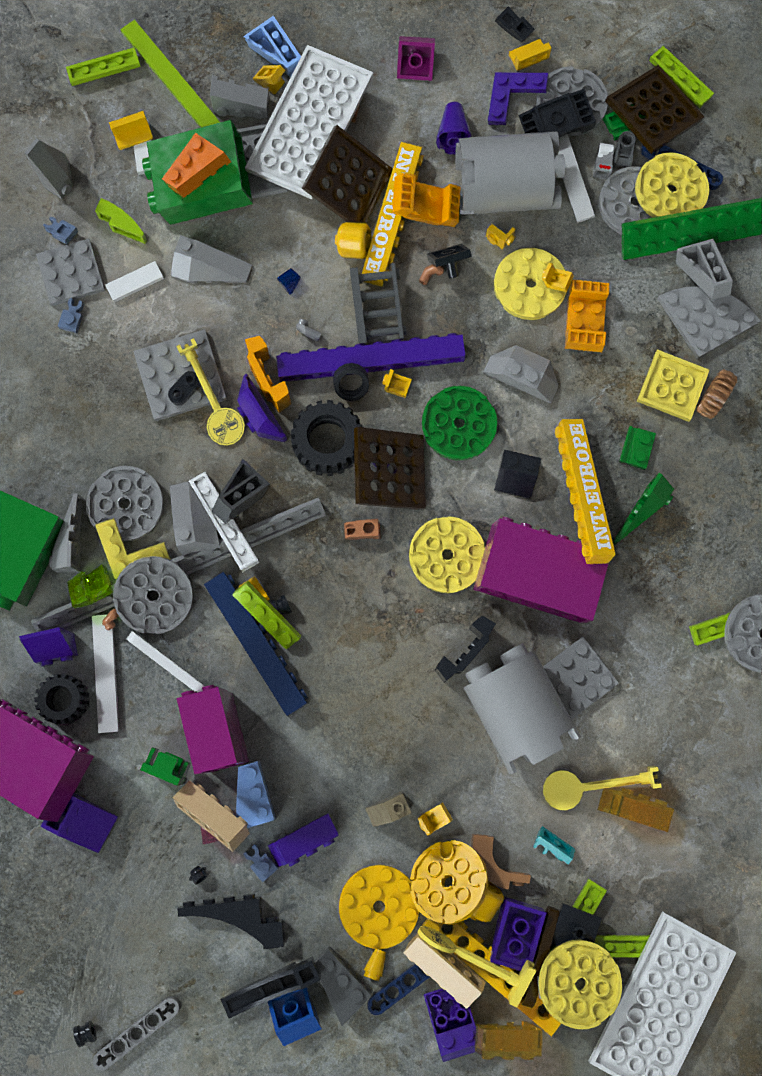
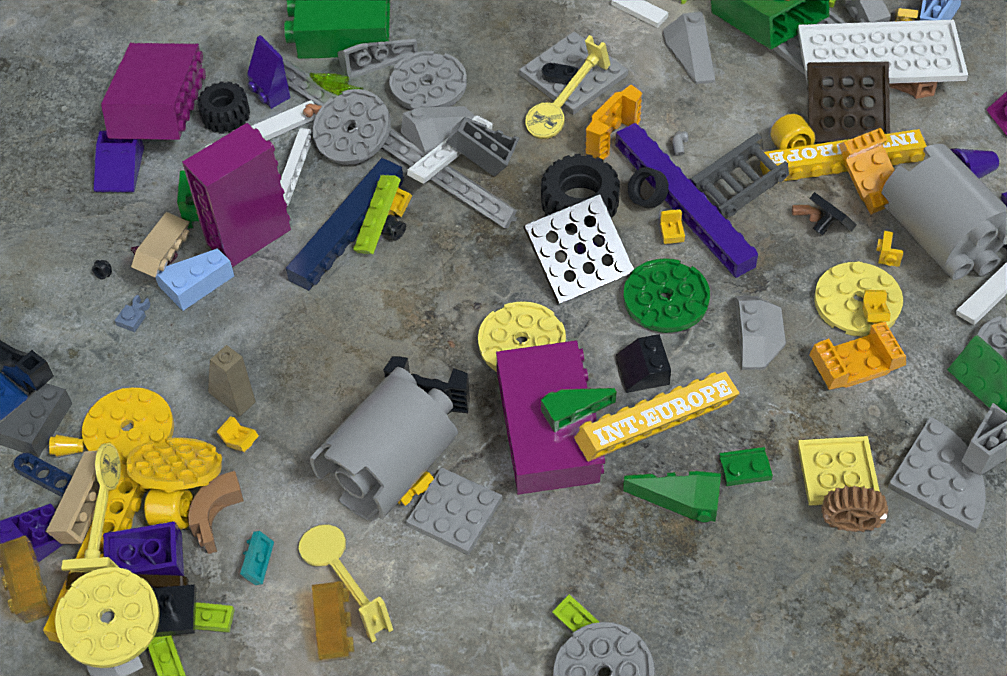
camera: 70 degrees right, 25 degrees down
(116, 551) = (385, 84): light yellow plate -> none
(242, 913) = (75, 320): black arch -> none
(258, 413) = (572, 133): dark purple wedge -> none
(289, 280) = (718, 110): clear blue slope -> none
(303, 841) = (168, 331): dark purple wedge -> none
(362, 529) = (507, 261): nougat leg -> none
(560, 557) = (574, 404): none -> green slope

